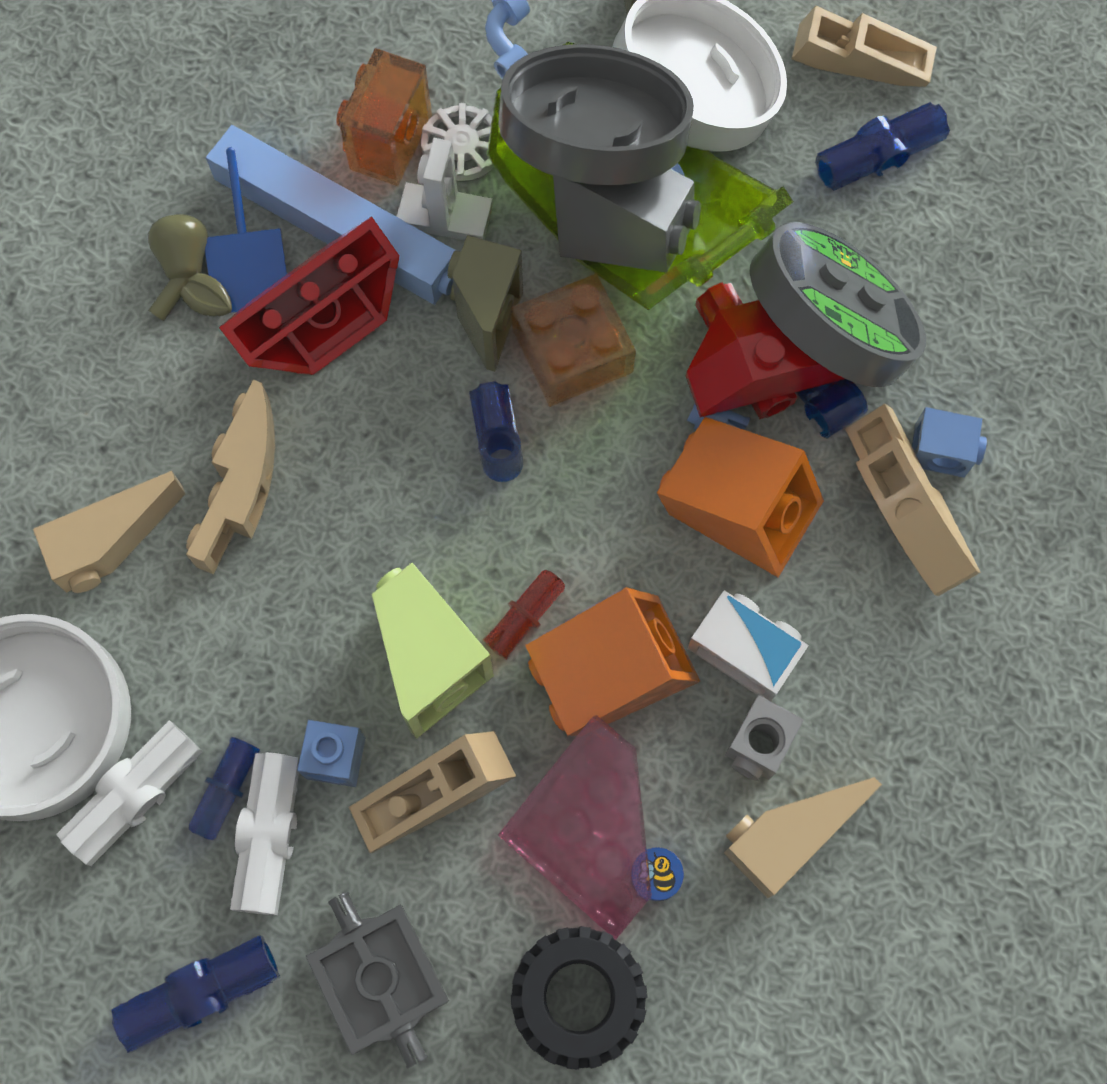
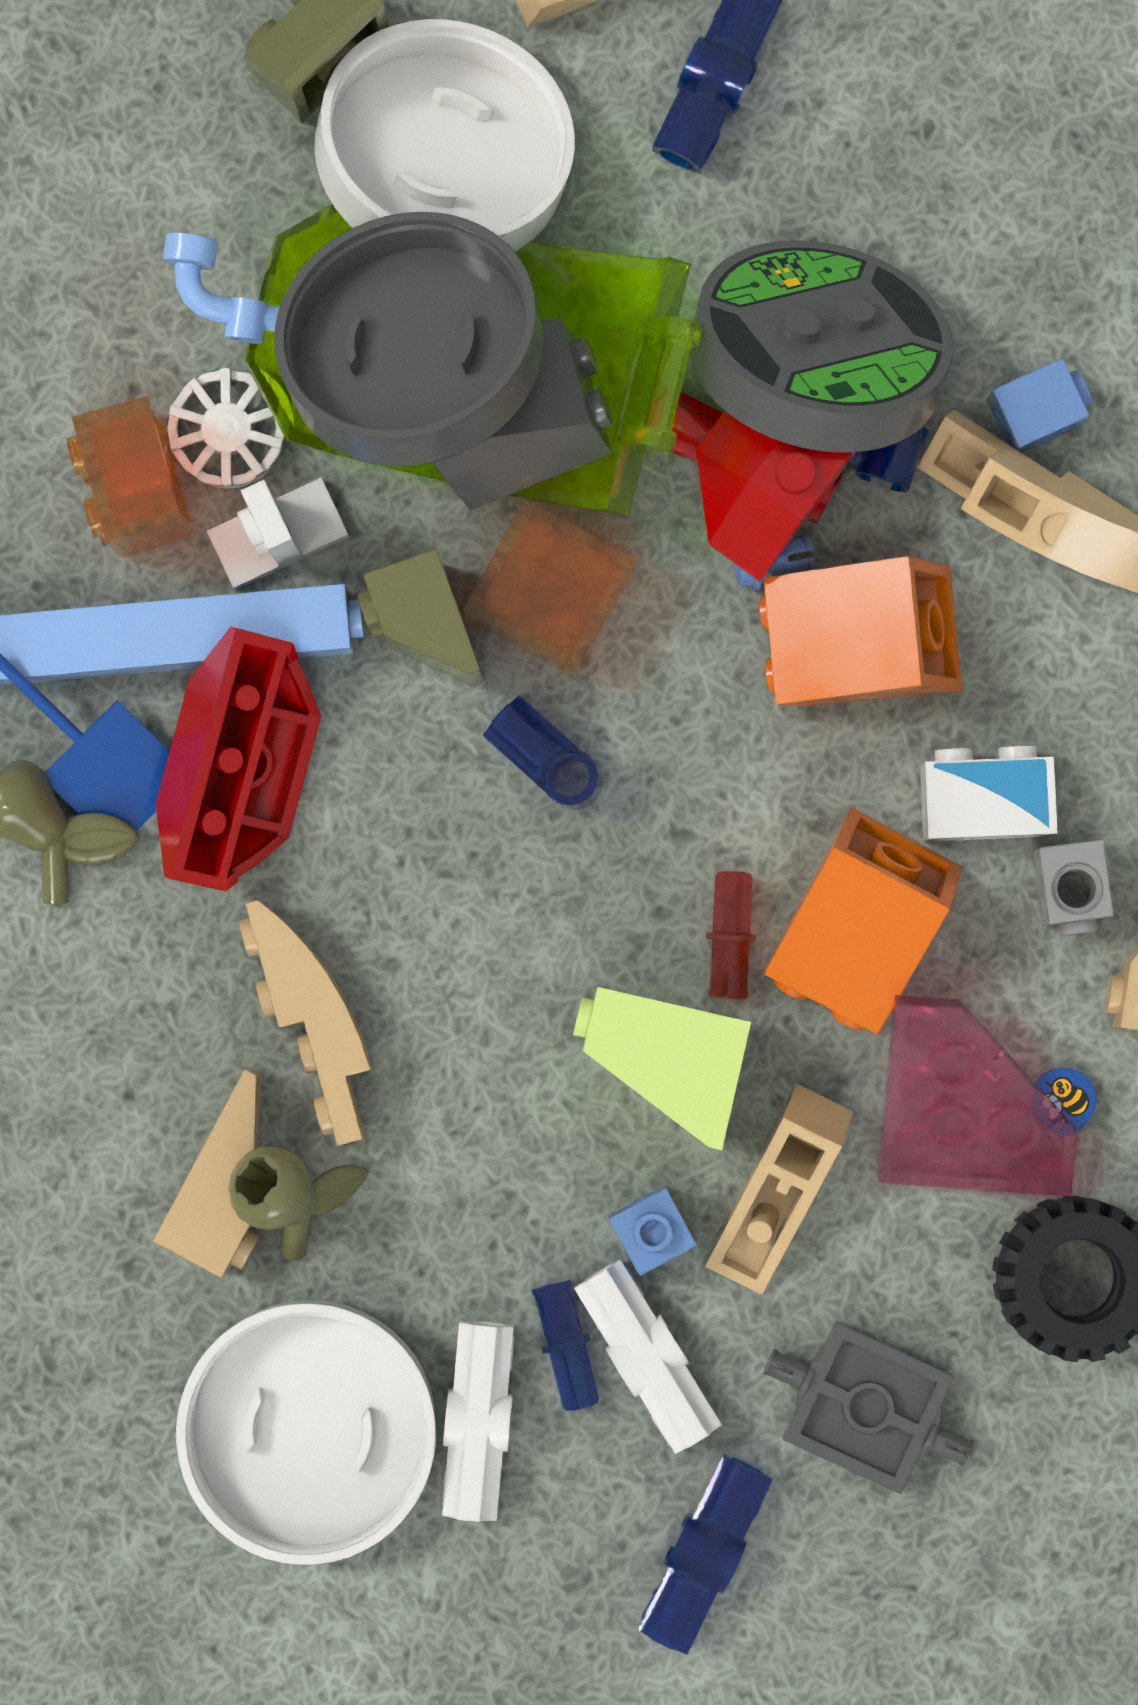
camera: 30 degrees left, 15 degrees up
(125, 548) = (275, 1191): none -> olive piece

